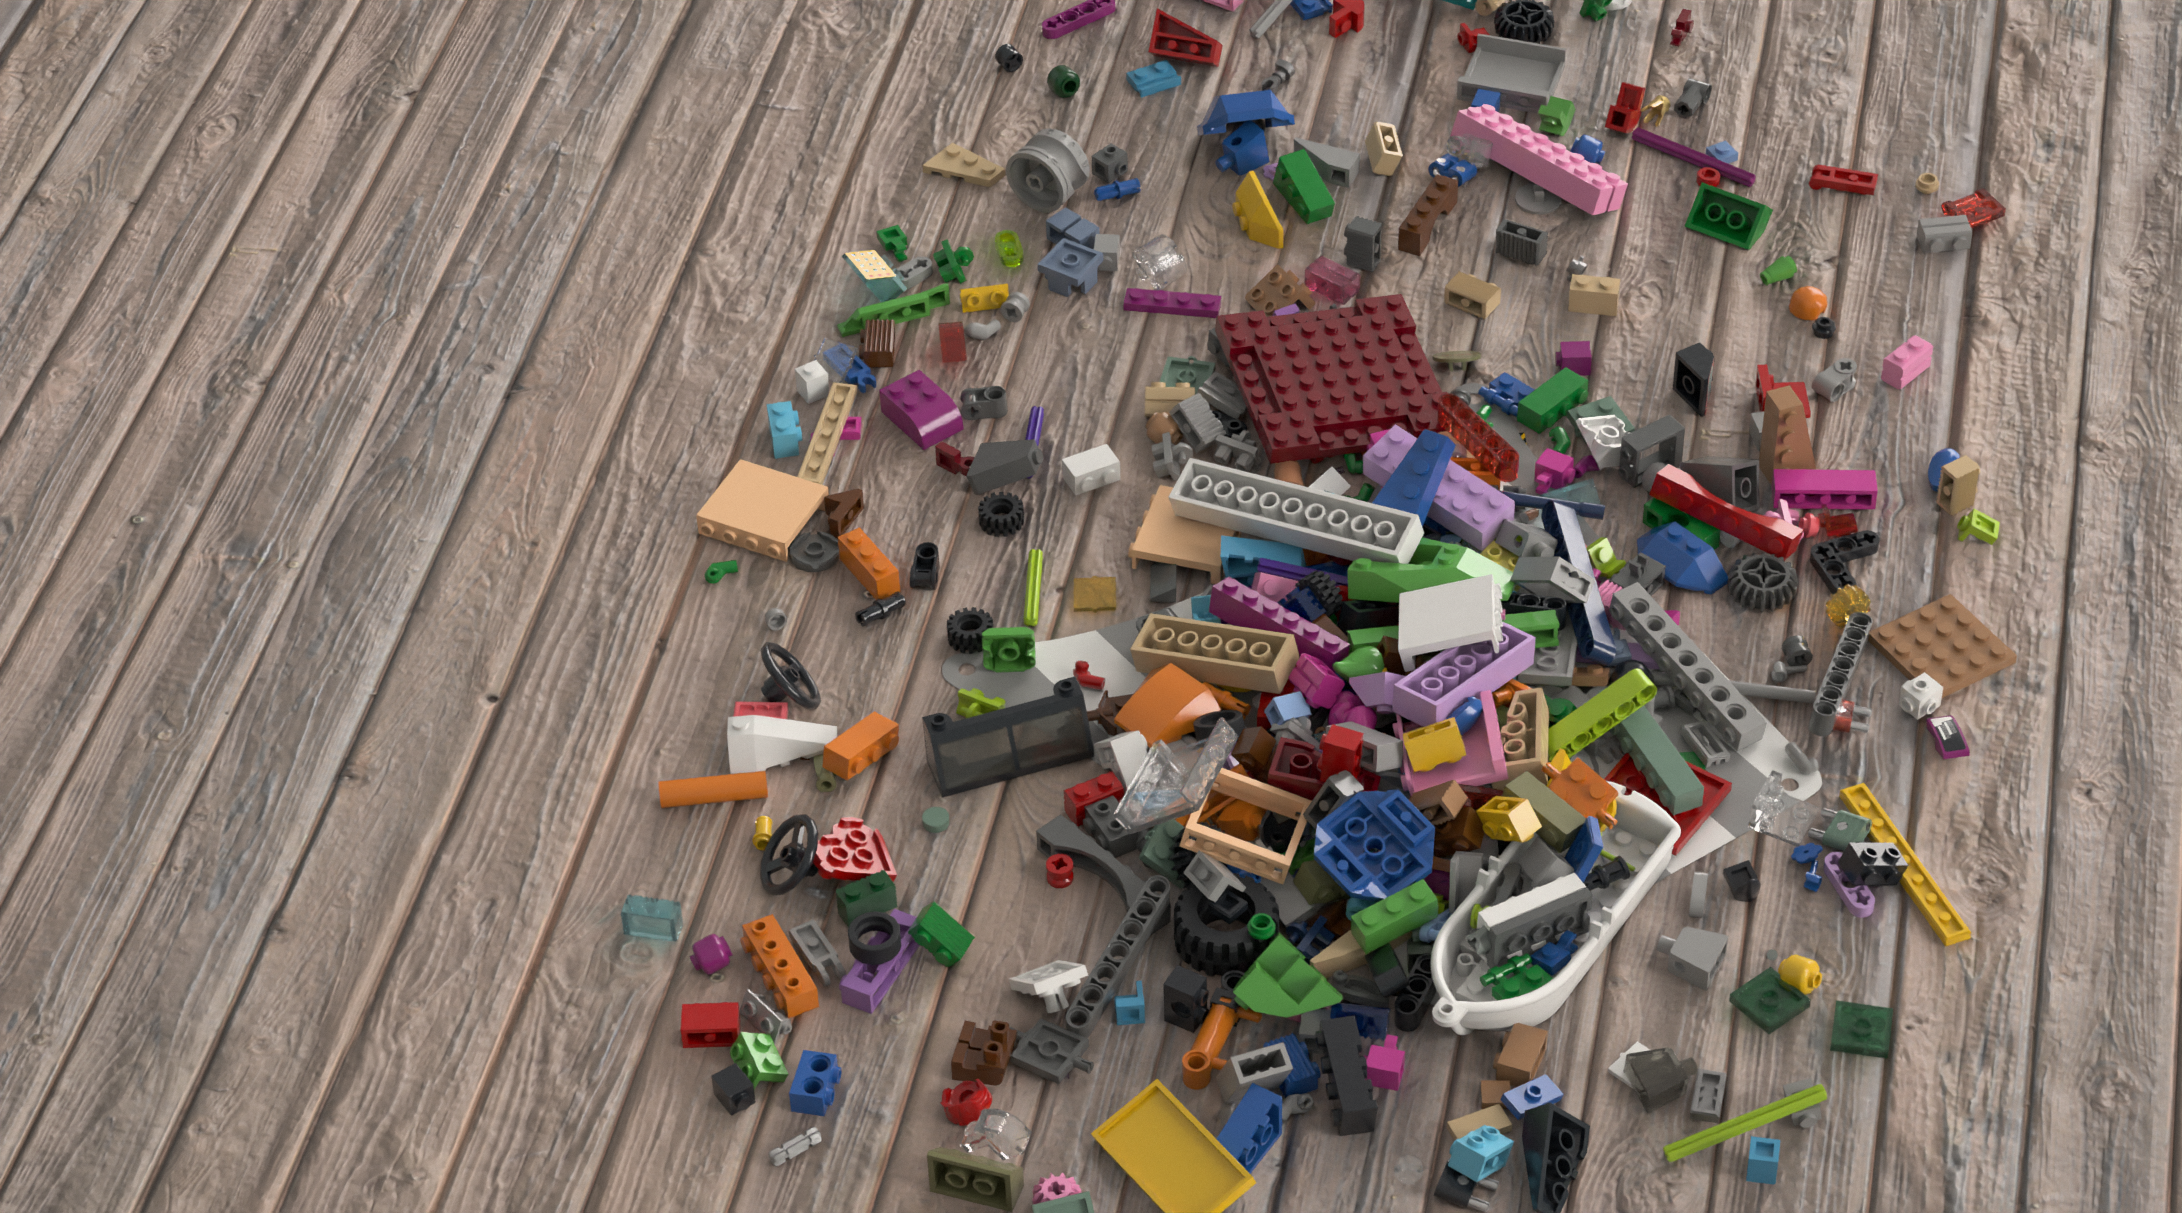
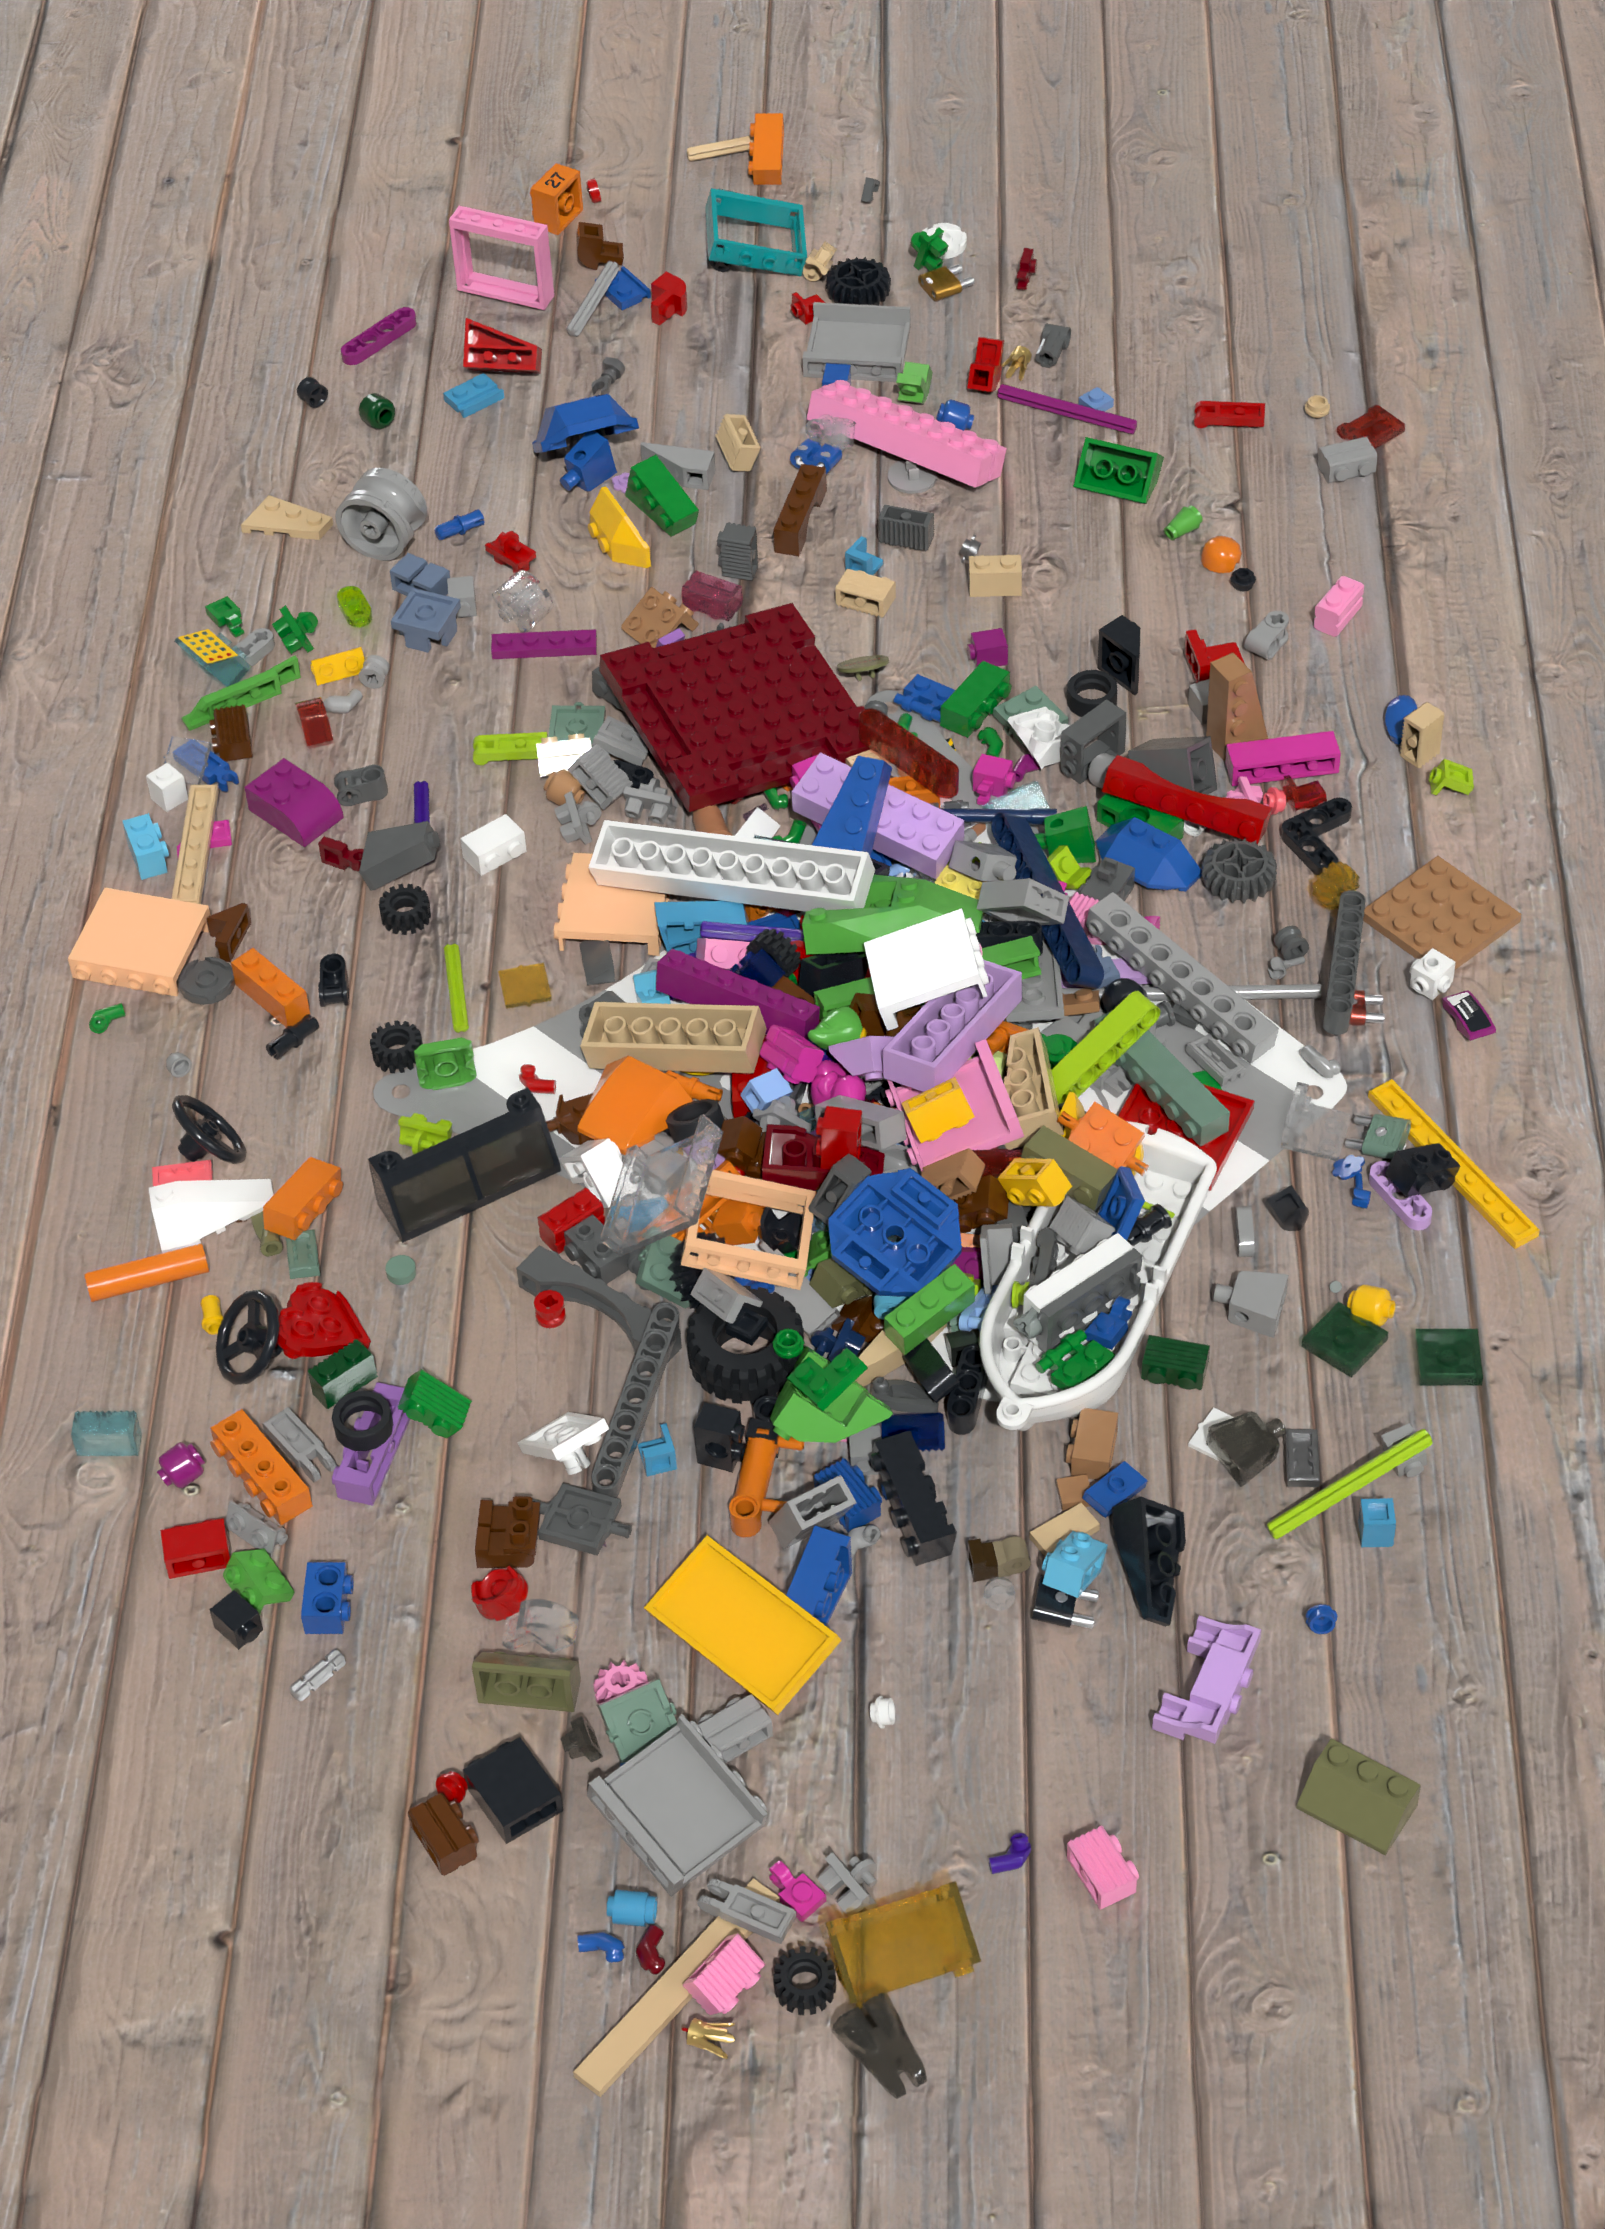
camera: 10 degrees left, 5 degrees up
(852, 794) = (303, 1255): none -> sand green plate
(1109, 163) = (445, 496): dark grey brick -> none
(1119, 387) = (506, 747): none -> lime plate
(1157, 217) = (510, 551): none -> red hips
(1286, 965) = (827, 1384): none -> green plate
(1386, 1064) = (950, 1476): dark pink brick -> none
(1414, 1139) = (997, 1558): none -> leg
(1467, 714) = (966, 1070): blue arm -> none
(1472, 264) = (858, 559): none -> dark azure panel
(1602, 30) = (943, 282): none -> pearl gold piece
(1610, 997) = (1175, 1362): none -> dark green brick
(1616, 525) = (1070, 829): none -> green torso
(1662, 398) = (1090, 680): none -> black tyre
(1708, 176) = (1087, 428): red tile -> none

